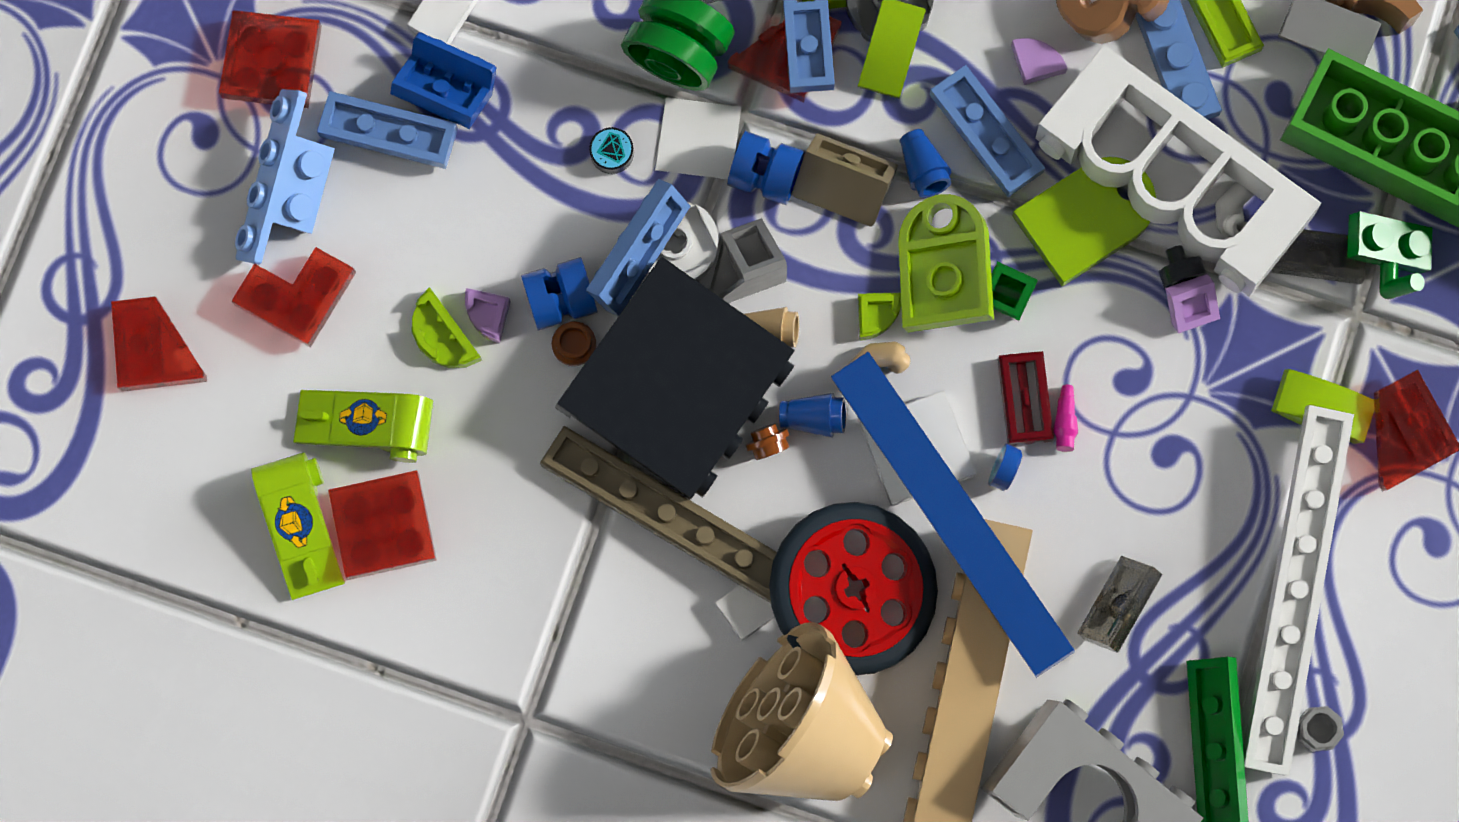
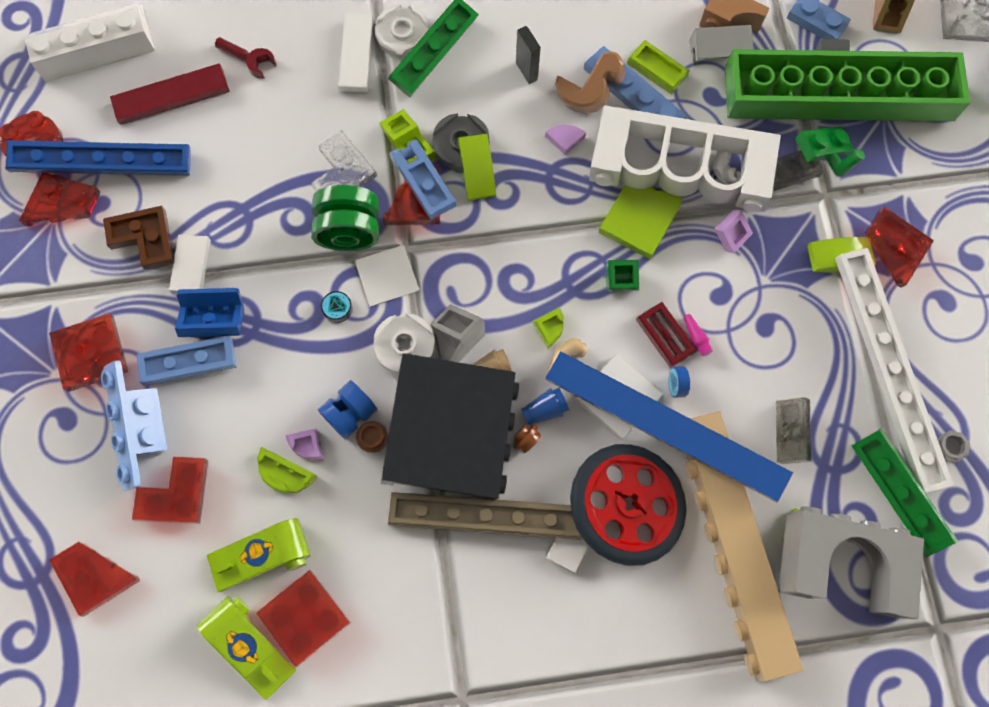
camera: 30 degrees left, 5 degrees down
(638, 247) = (384, 356): medium blue plate -> none
(779, 174) = (449, 271): blue wheel -> none
(800, 725) = (645, 612): tan cone -> none
(844, 179) = (489, 257): dark tan panel -> none
(924, 165) = (533, 226): blue cone -> none
(945, 268) = (578, 280): lime tile -> none
(987, 131) = (558, 189): medium blue plate -> none
(1180, 267) = (715, 214): black tile -> none

